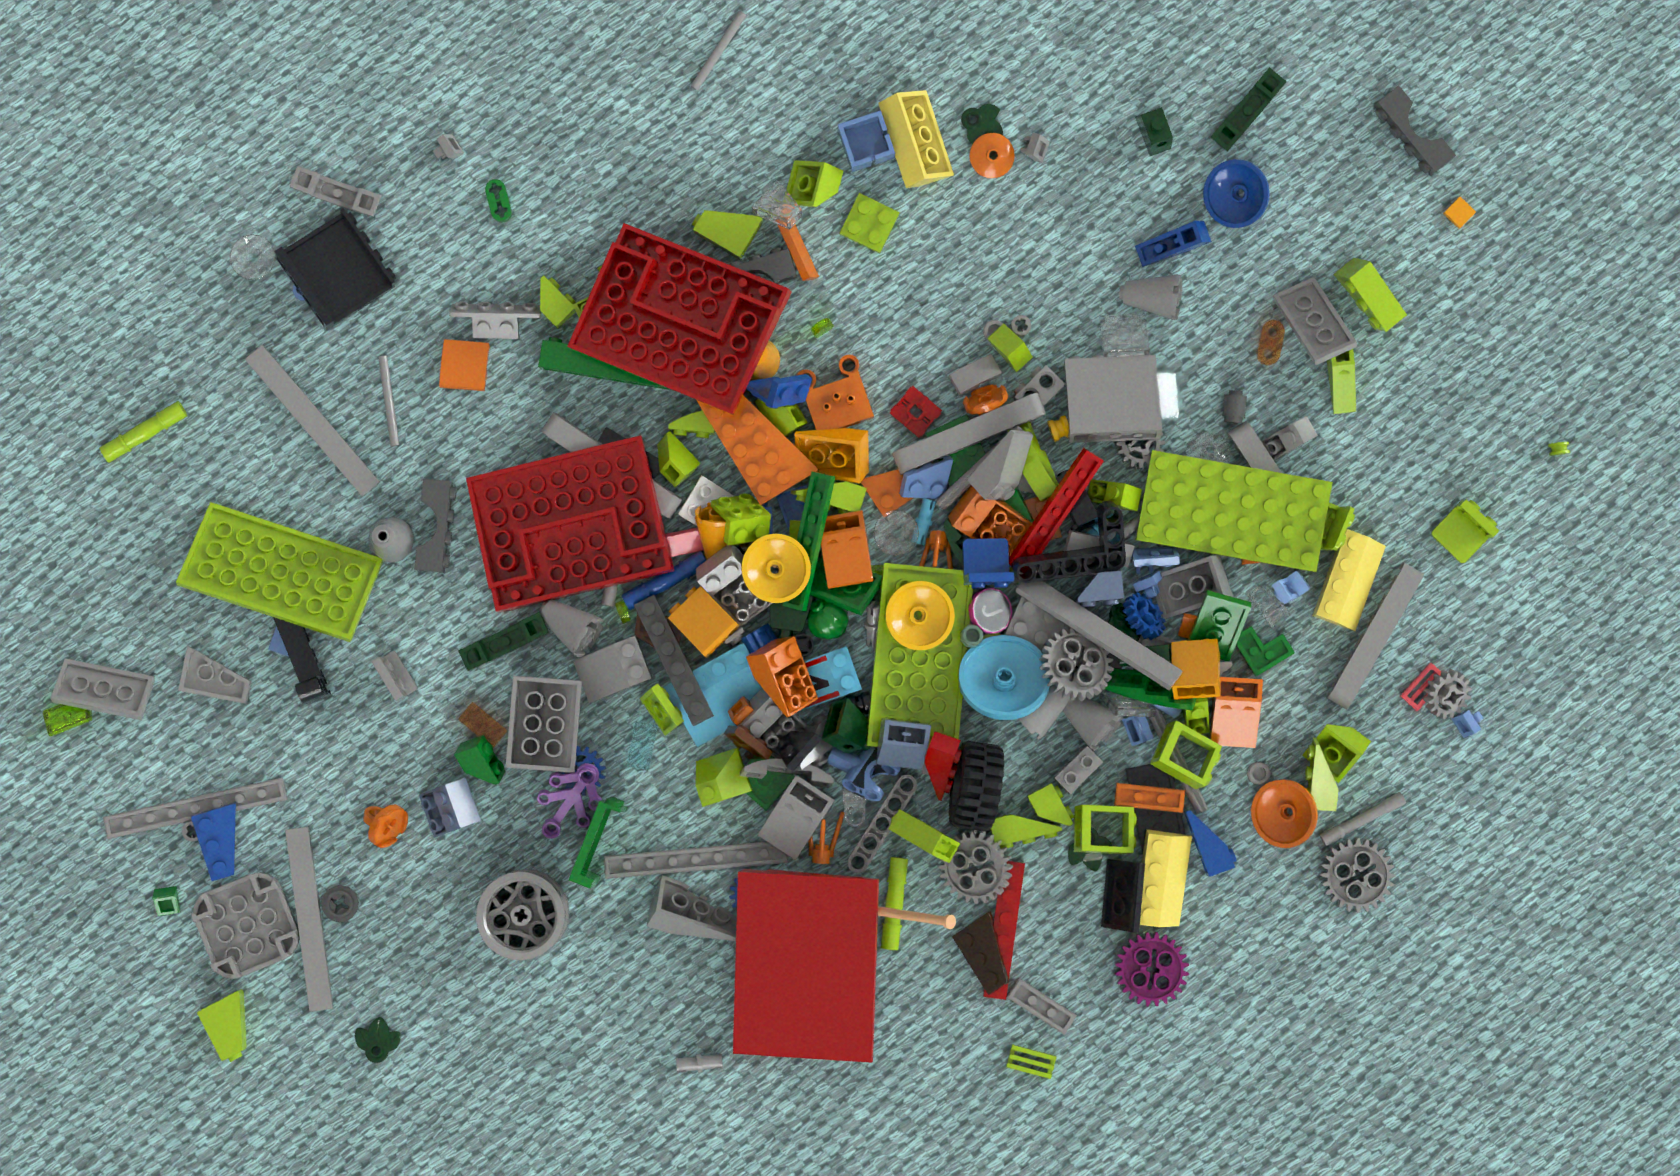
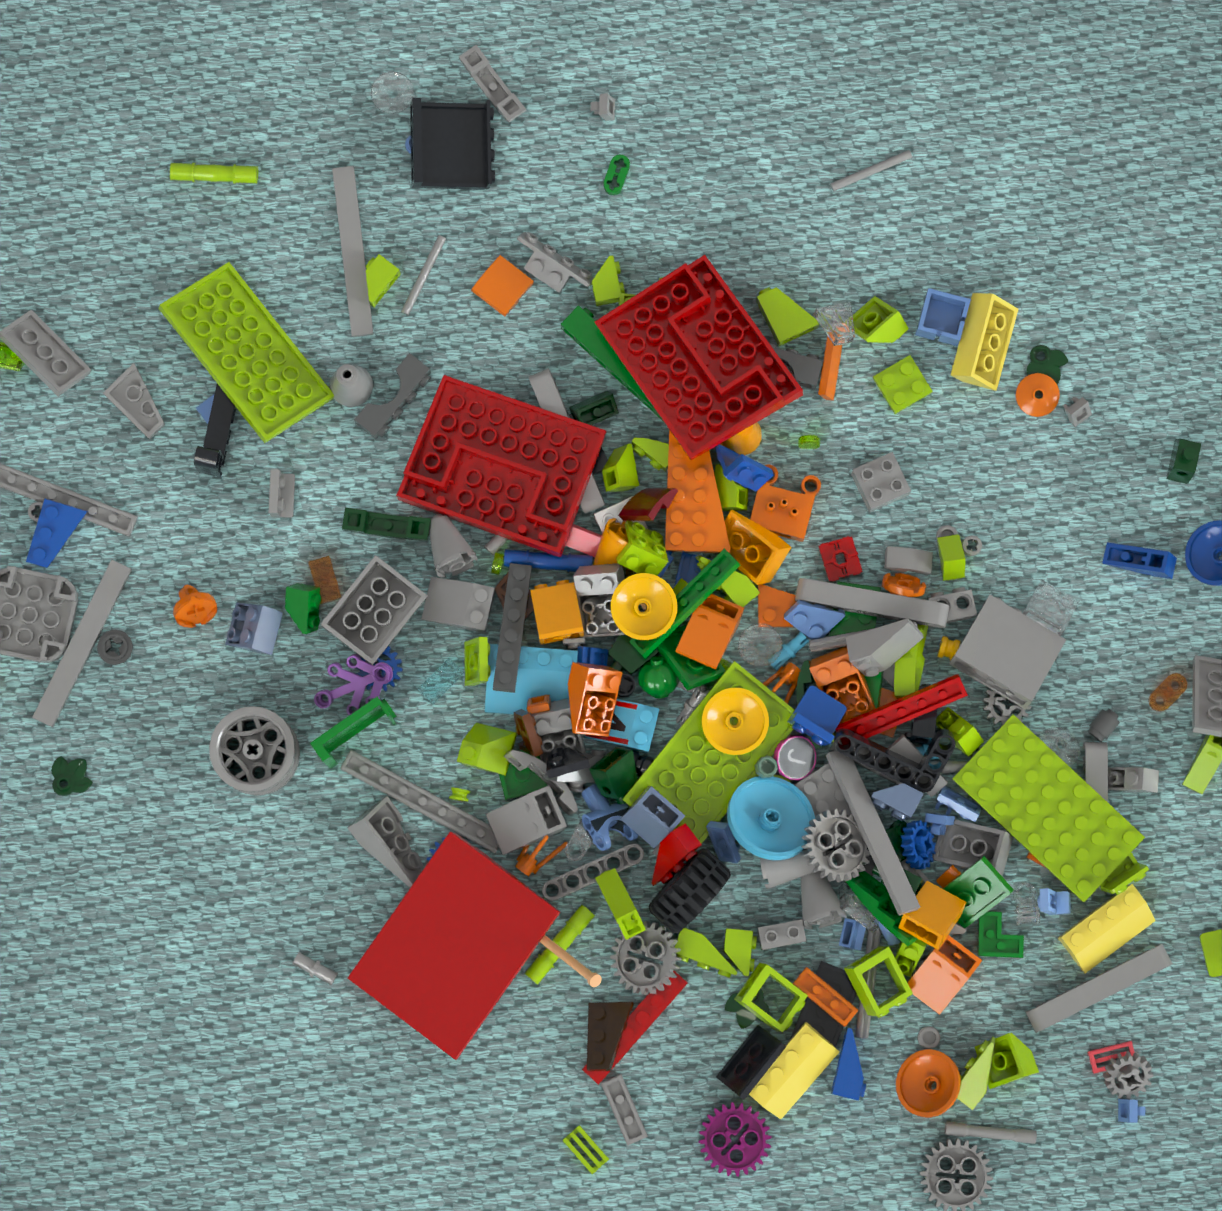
camera: 35 degrees right, 5 degrees down
(352, 428) = (380, 277): none -> lime slope
(617, 420) = (595, 408): none -> dark green slope
(719, 475) = (647, 503): none -> slope
(723, 832) = (459, 794): none -> lime bush
(907, 322) = (880, 482): none -> light grey brick
(977, 724) = (723, 842): none -> medium blue plate
(1154, 295) = (1097, 591): light grey cone -> none
(1168, 395) = (1054, 680): clear slope -> none

